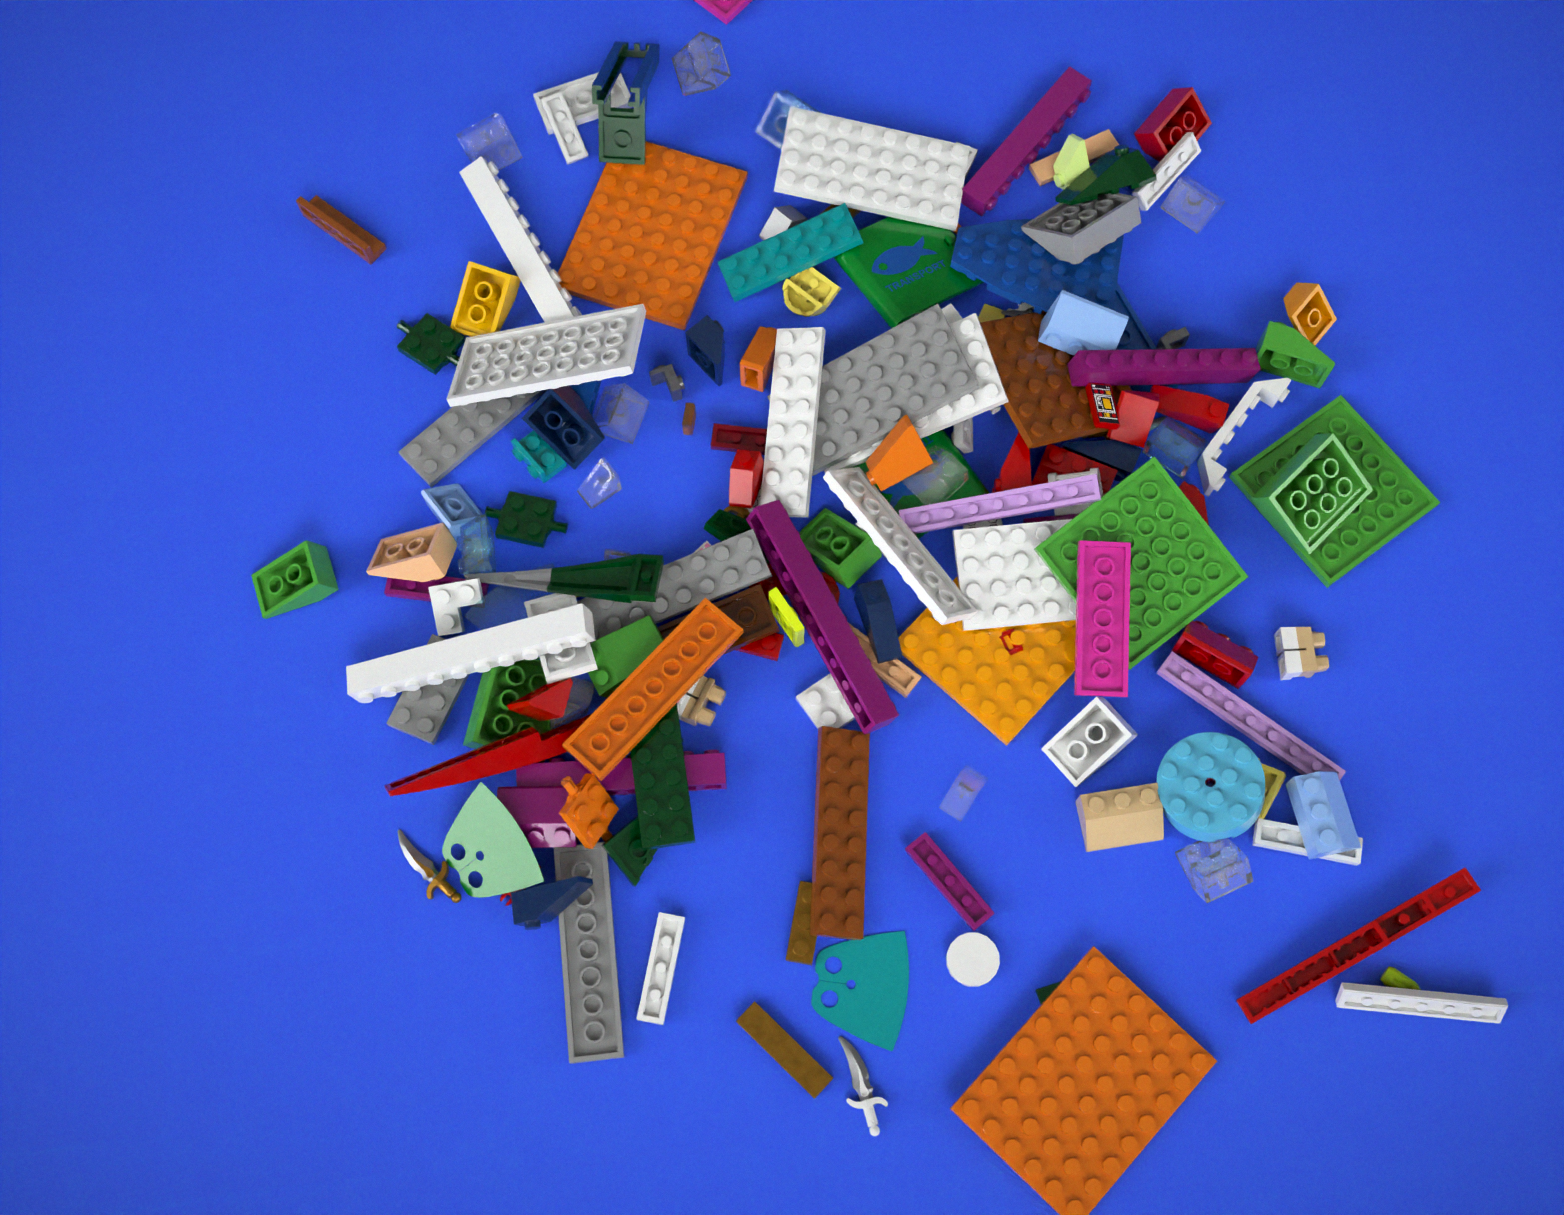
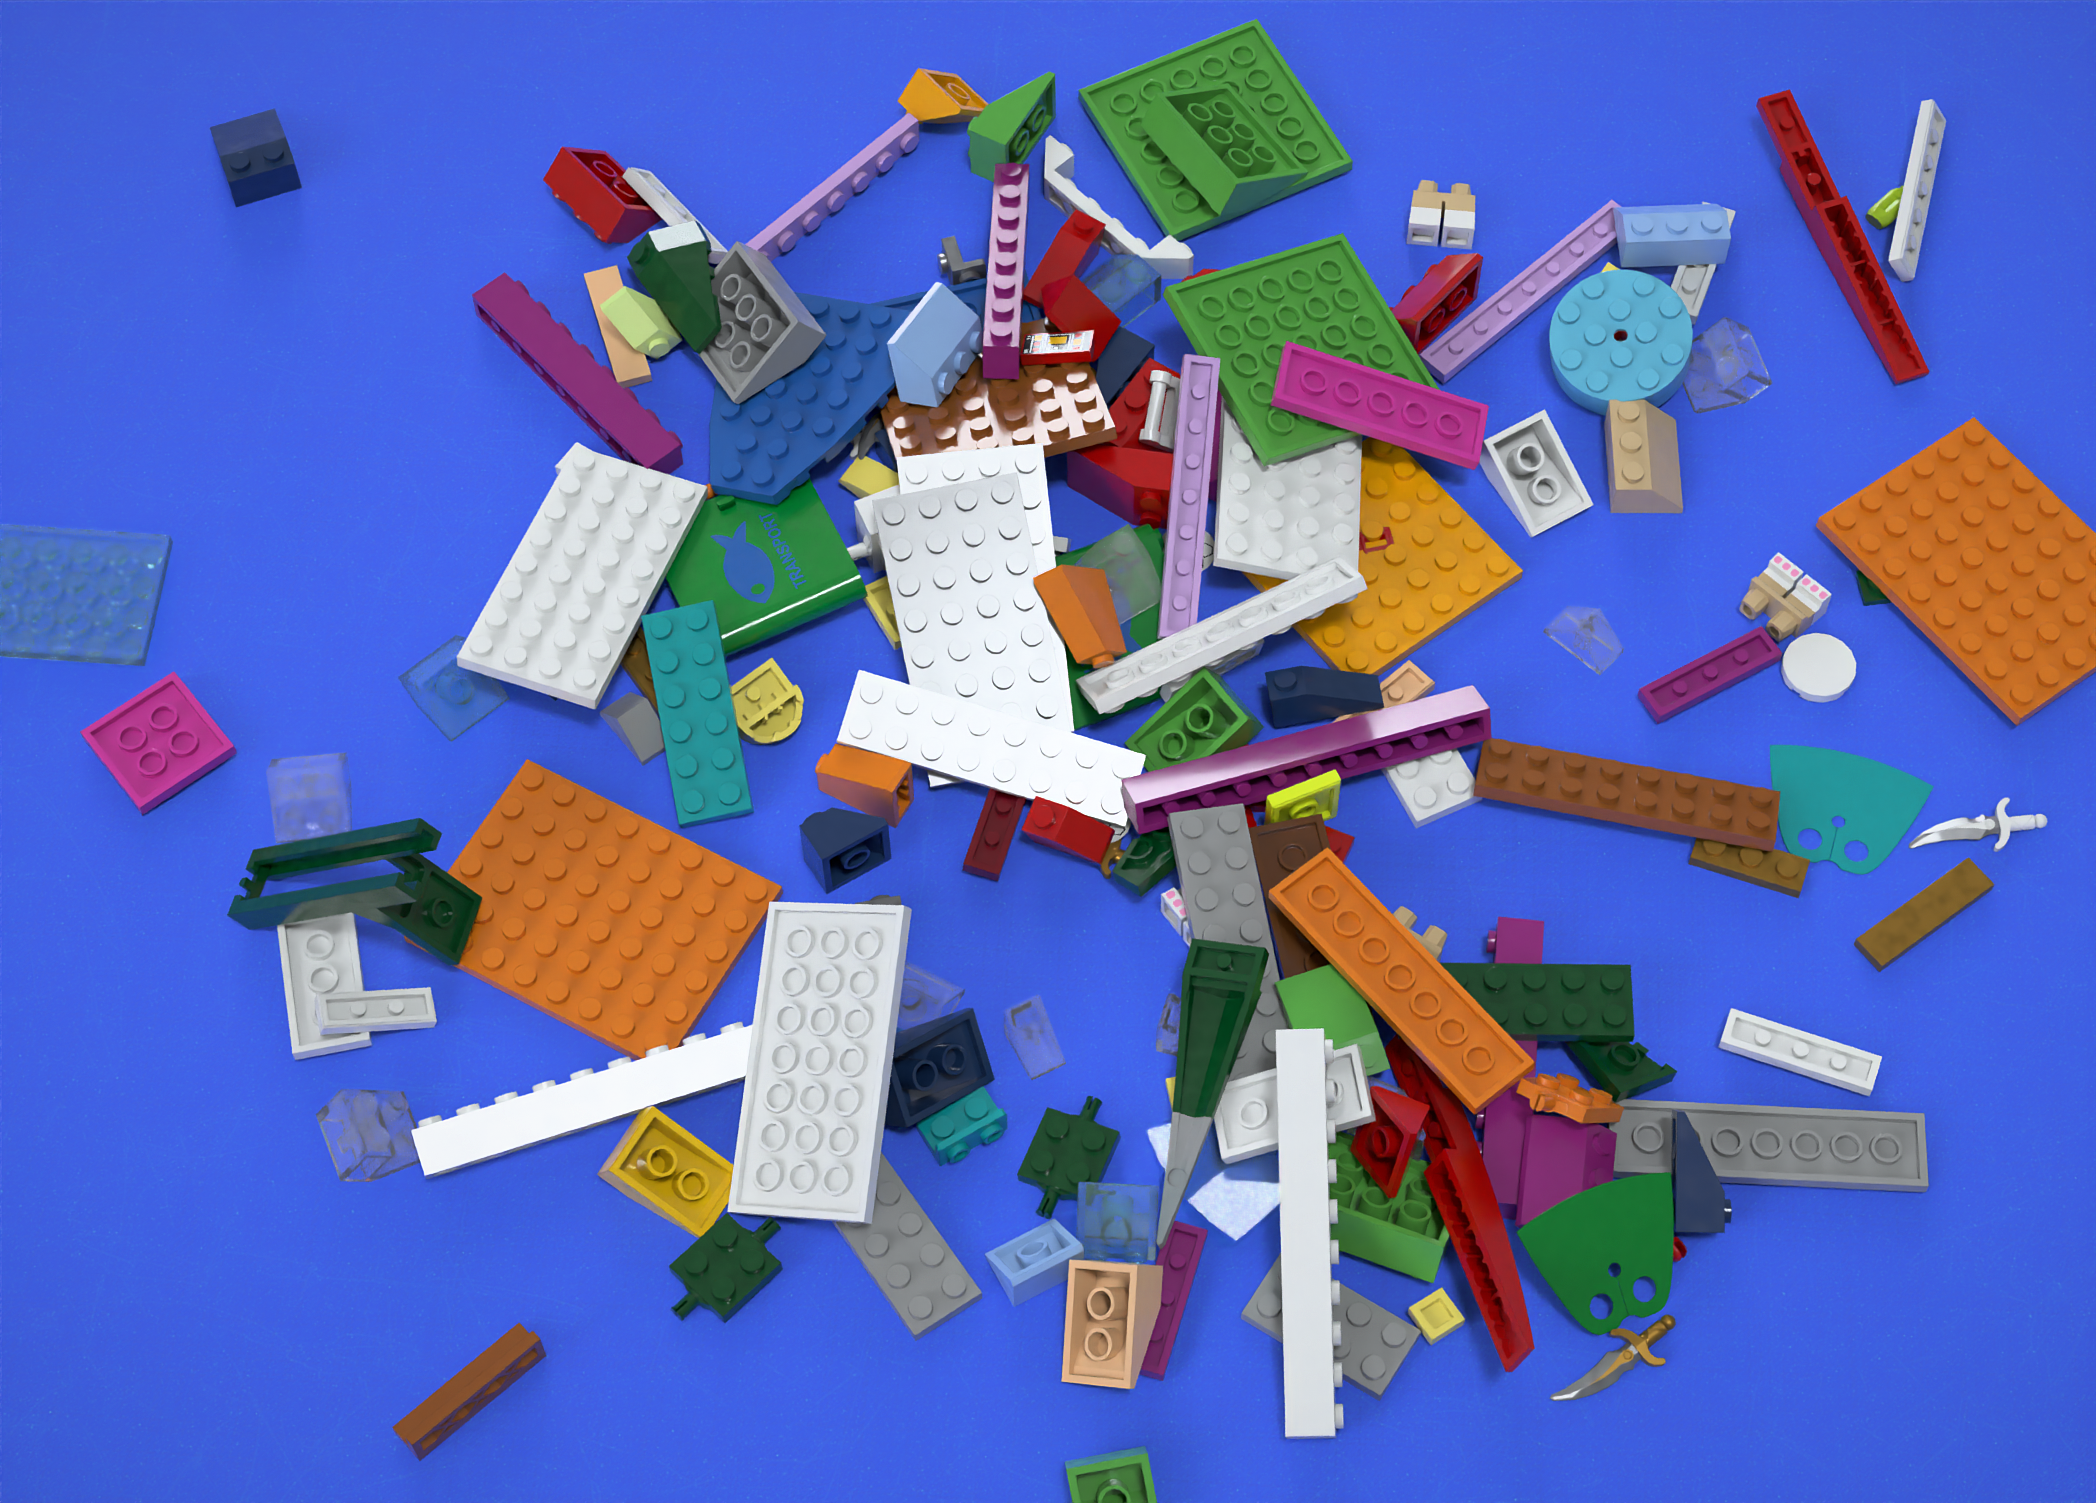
camera: 80 degrees left, 10 degrees down
(442, 749) = (1436, 1316): none -> light yellow plate
(448, 599) = (1194, 1275): white plate -> none
(689, 419) = (946, 899): clear orange tile -> none
(1025, 929) = (1786, 598): none -> tan hips
(1192, 203) = (734, 198): clear slope -> none
(1209, 258) = (837, 189): none -> lavender plate

